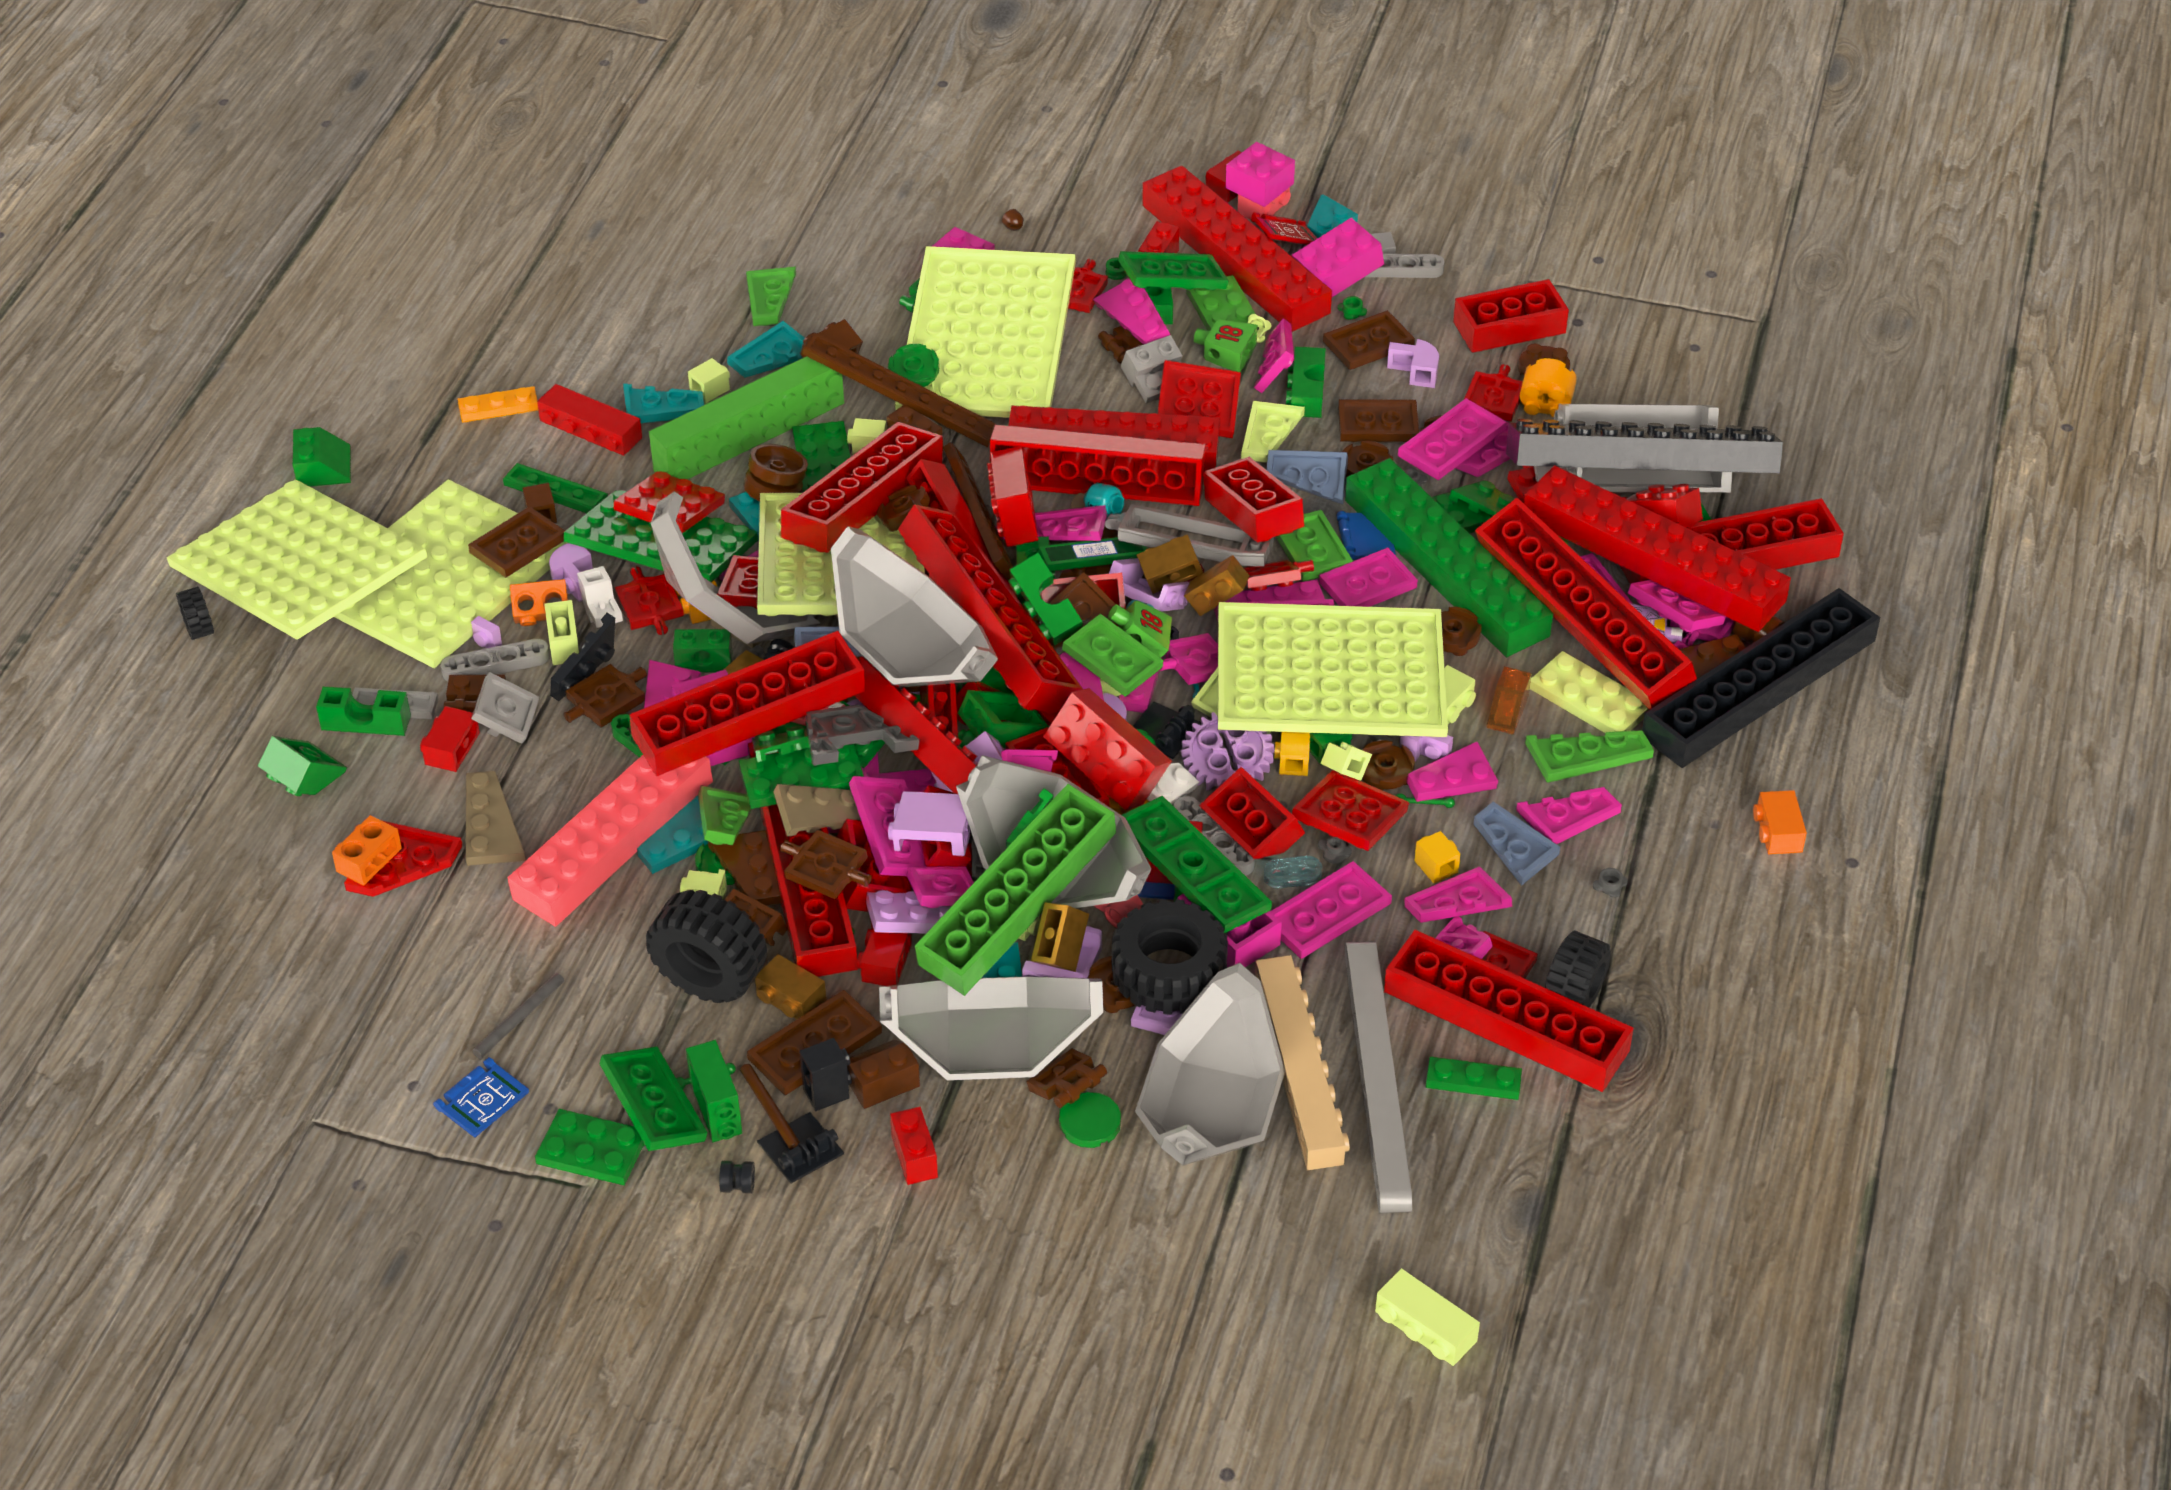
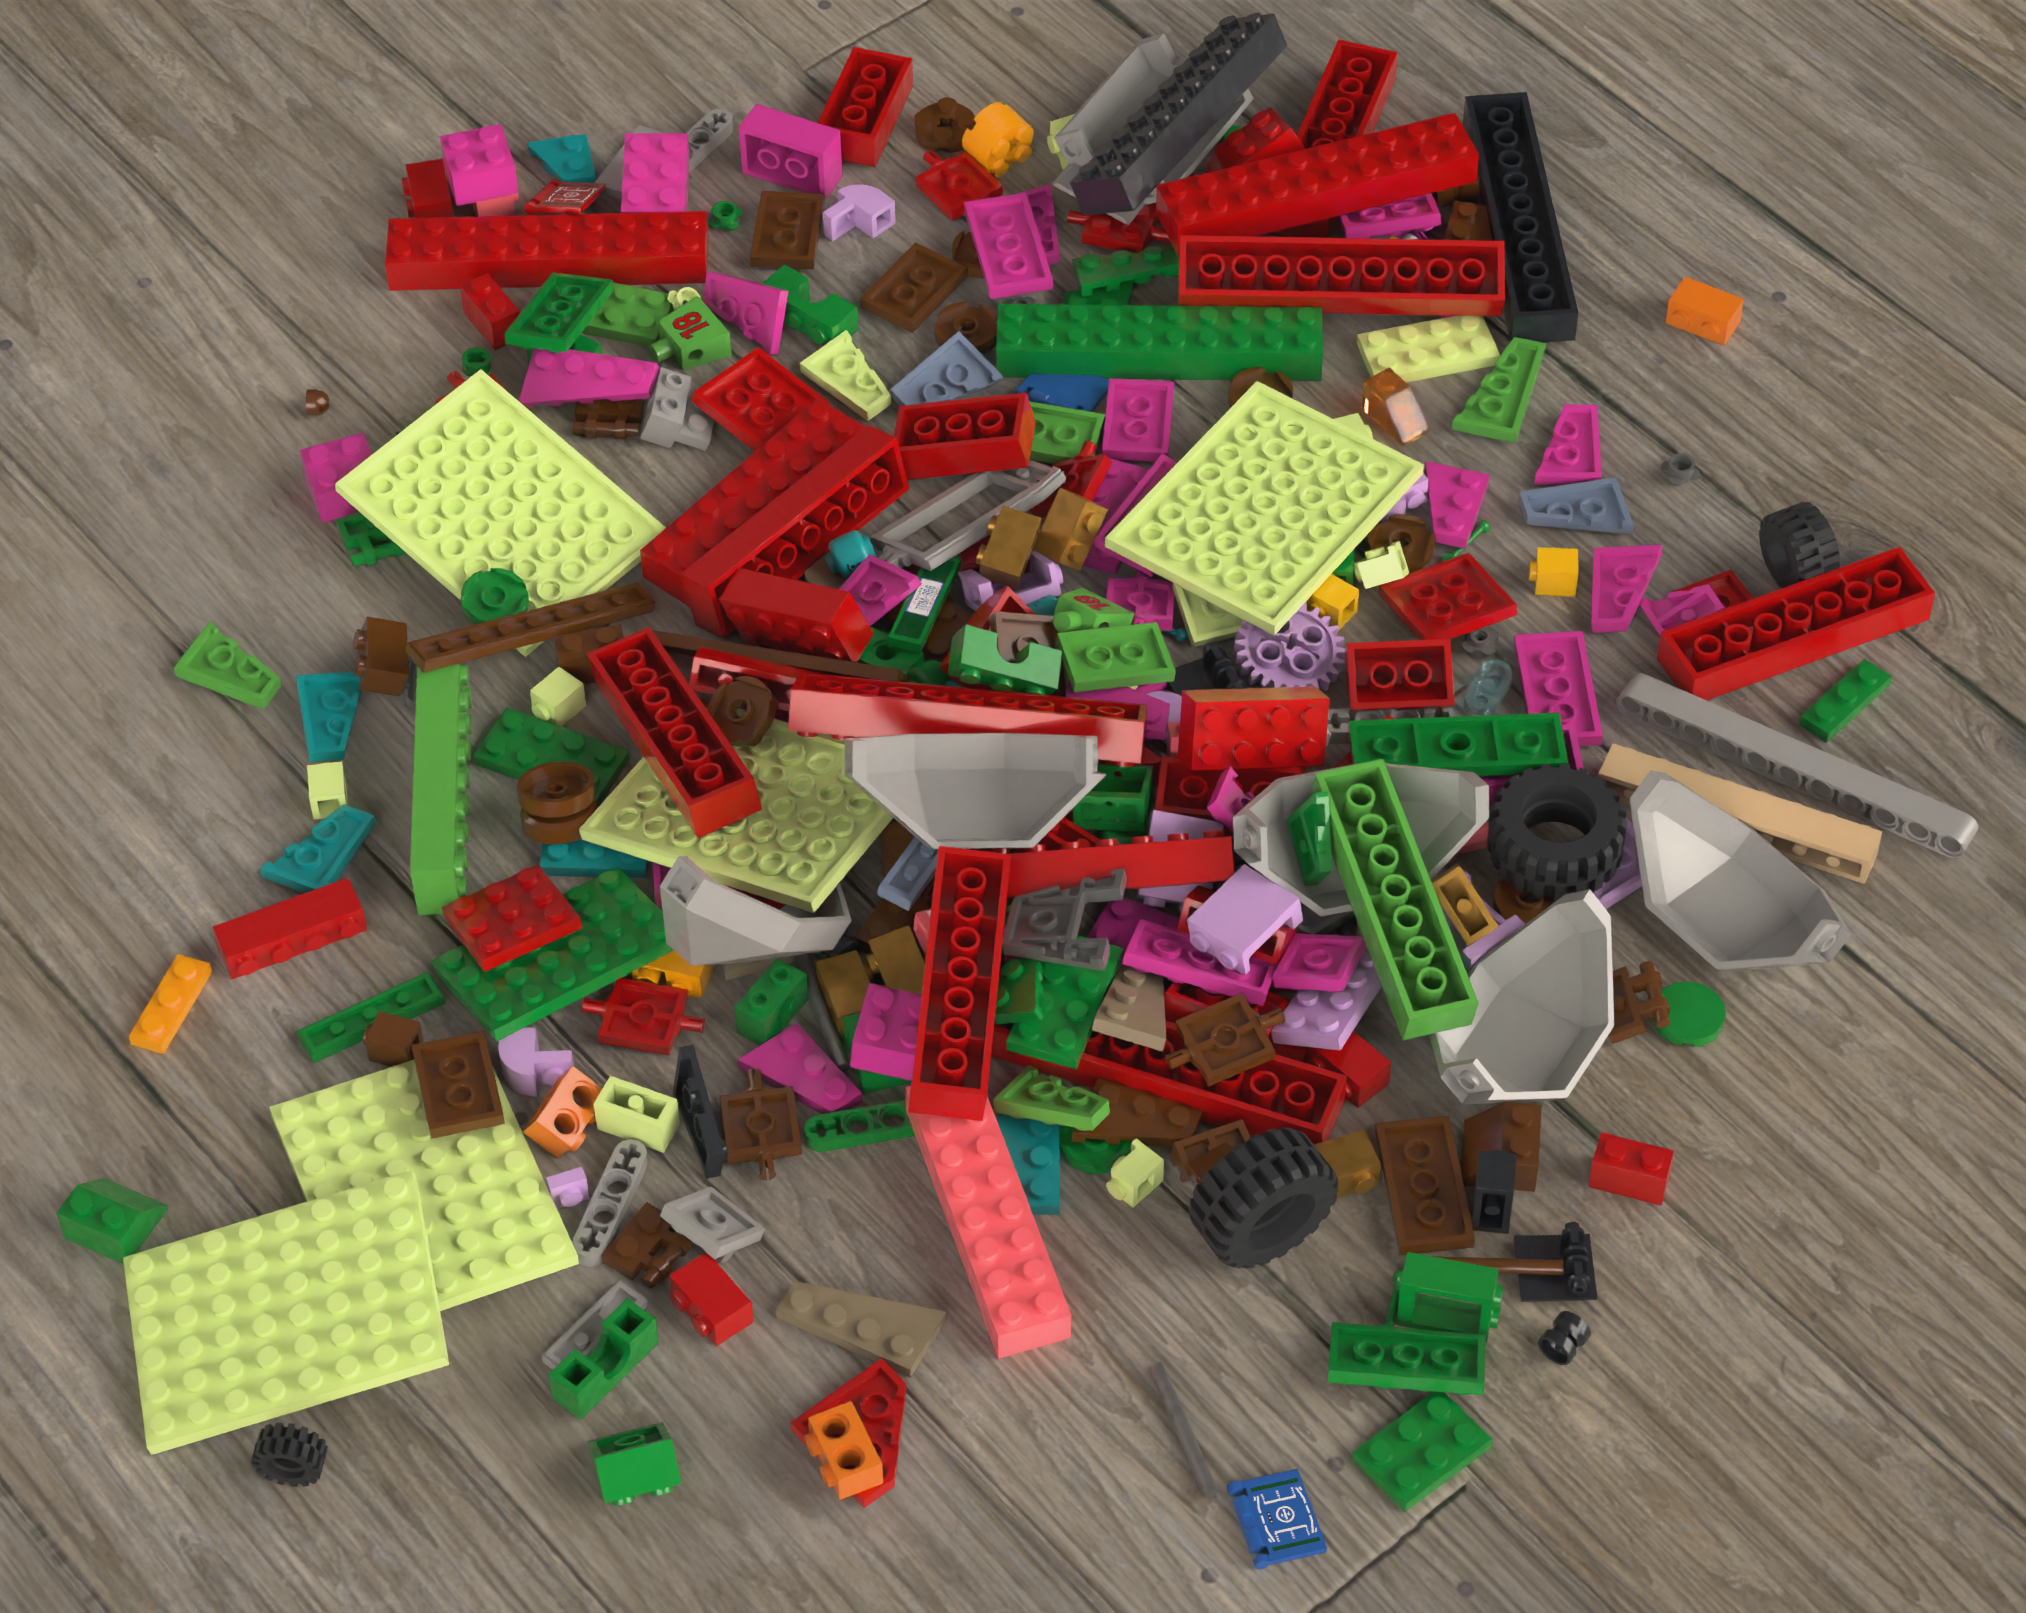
camera: 55 degrees left, 5 degrees up
(598, 595) = (601, 1054): white brick -> none
(1430, 301) = (790, 151): none -> dark pink brick

